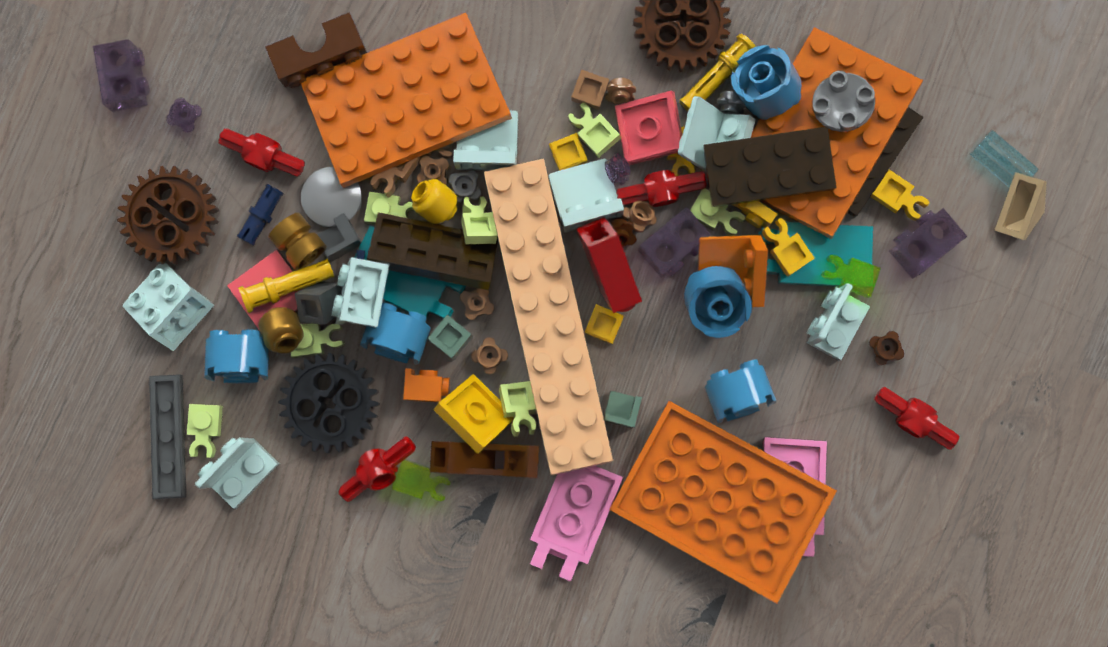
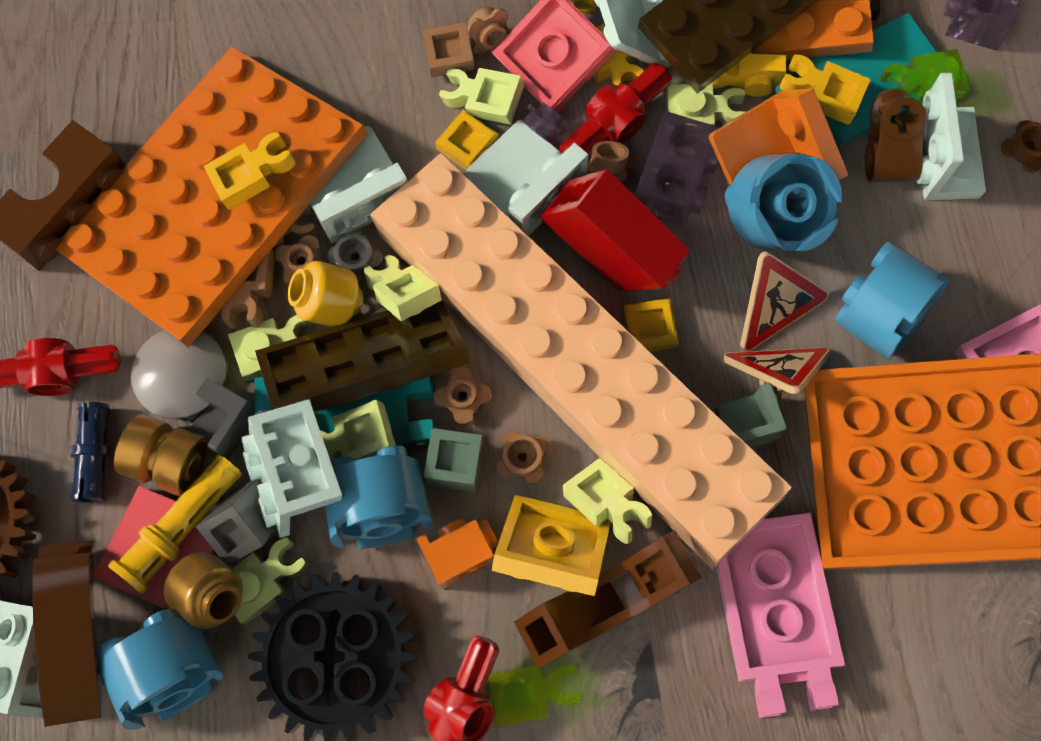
camera: 30 degrees left, 10 degrees down
(201, 309) = (66, 633): none -> reddish brown arch
(407, 294) = (359, 432): none -> yellowish green plate
(425, 107) = (242, 173): none -> yellow plate
(657, 391) = (784, 368): none -> piece
(681, 352) = (777, 300): none -> piece
(807, 300) = (895, 147): none -> reddish brown piece

